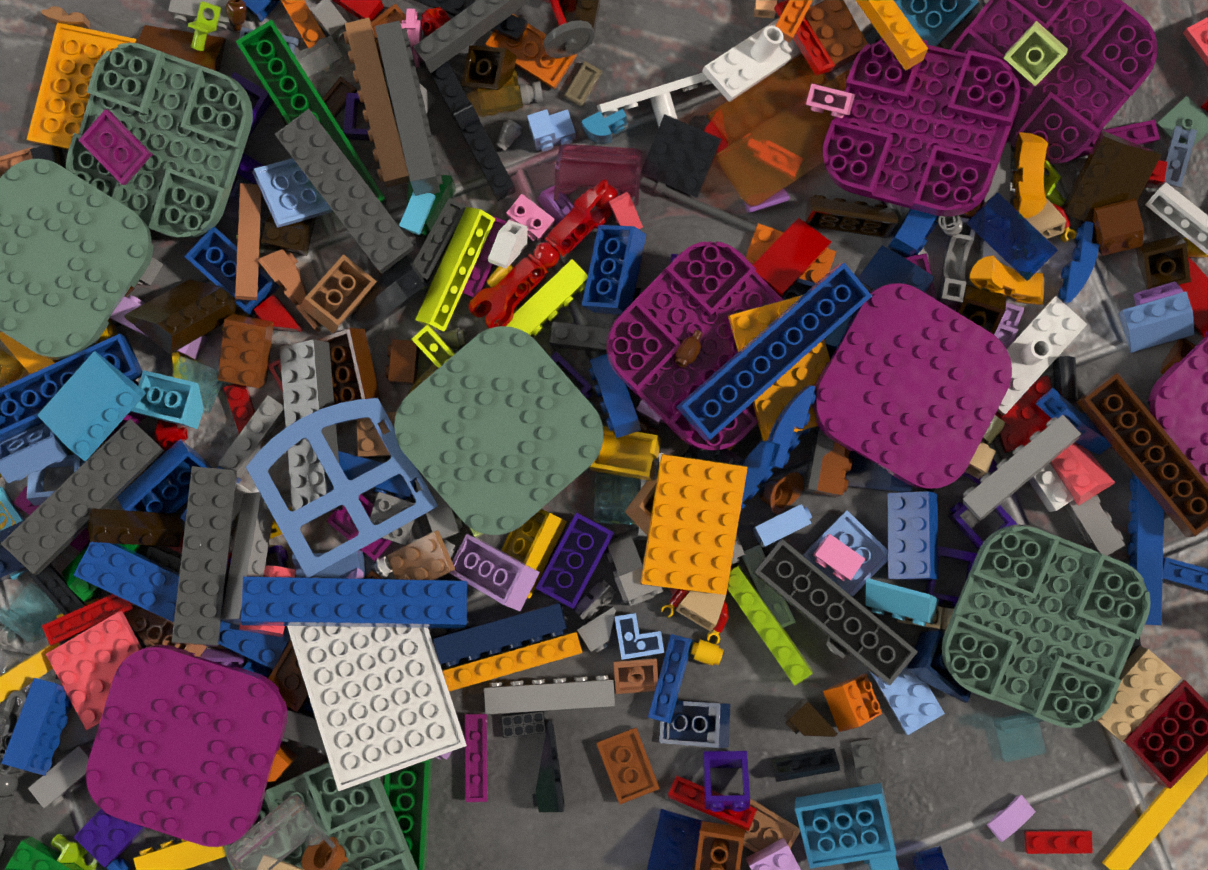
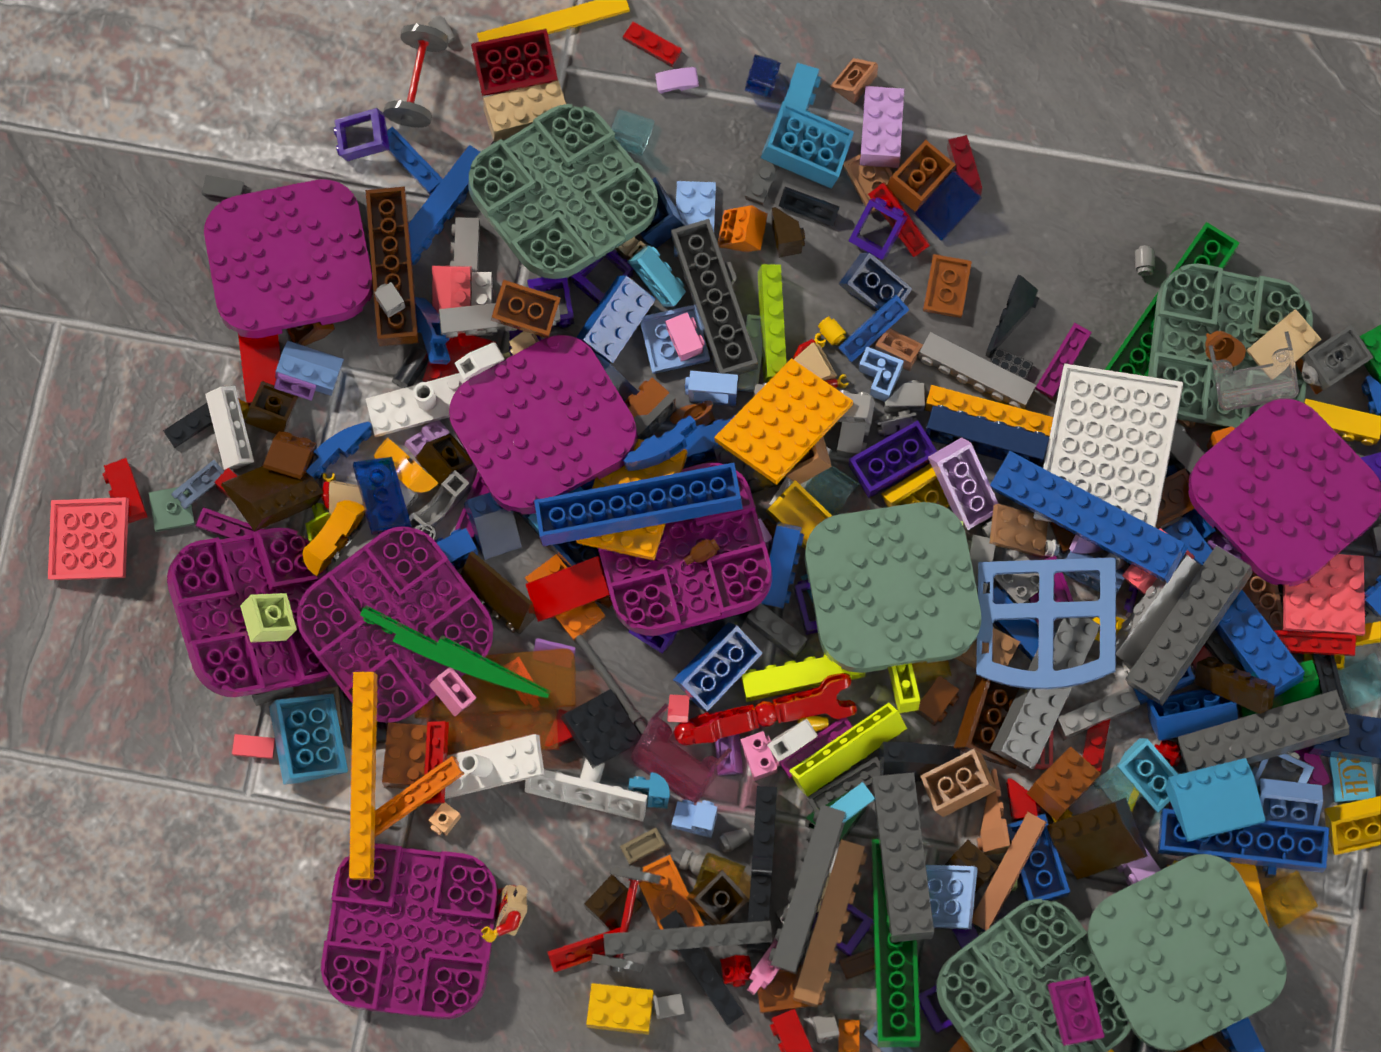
camera: 150 degrees left, 10 degrees down
(851, 126) = (452, 654): none -> green slope
(1002, 480) = (525, 309): none -> dark orange brick
(1010, 410) = (479, 361): none -> white slope
(1133, 413) = (389, 299): none -> light grey brick

